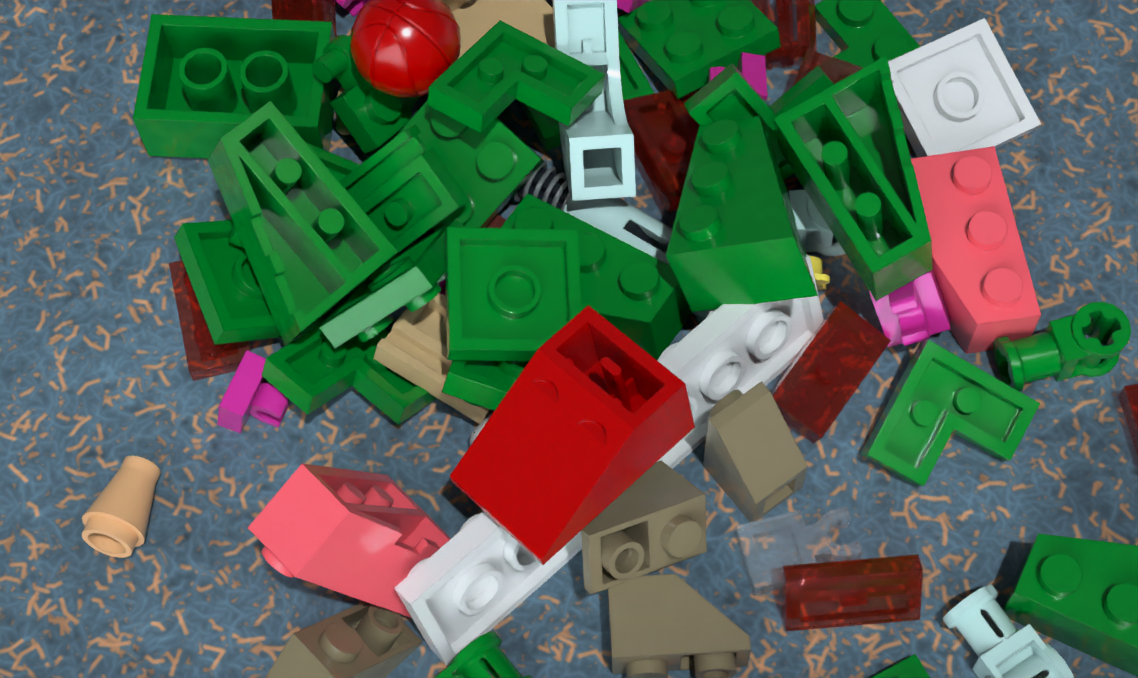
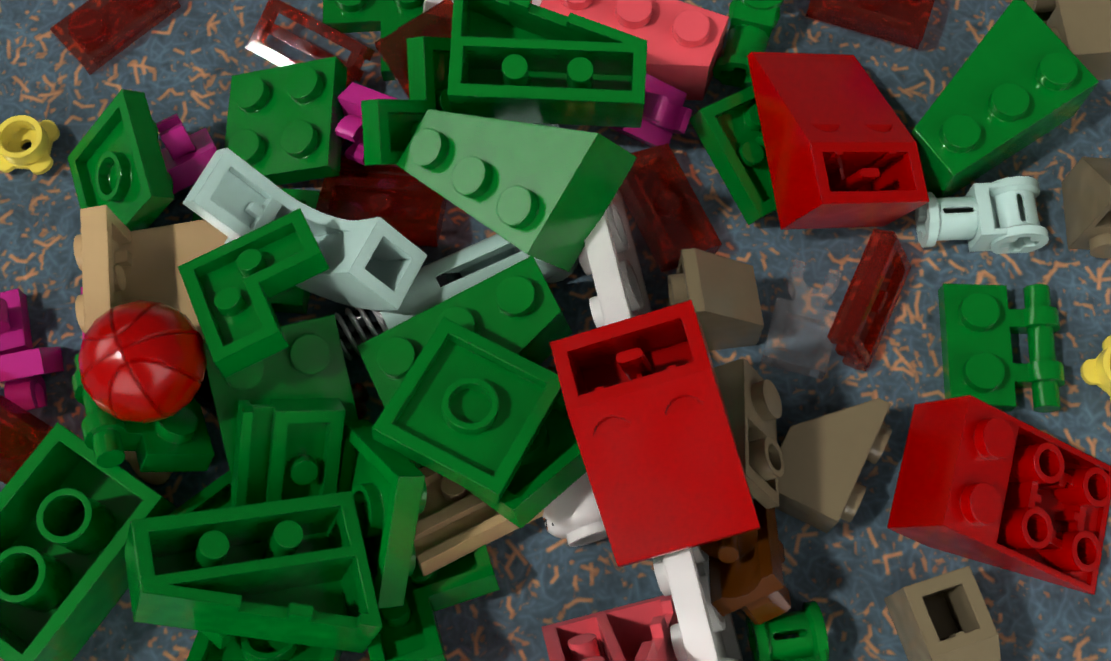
camera: 60 degrees left, 5 degrees up
(534, 593) = (749, 572): none -> reddish brown hips
(983, 471) = (833, 143): none -> red slope

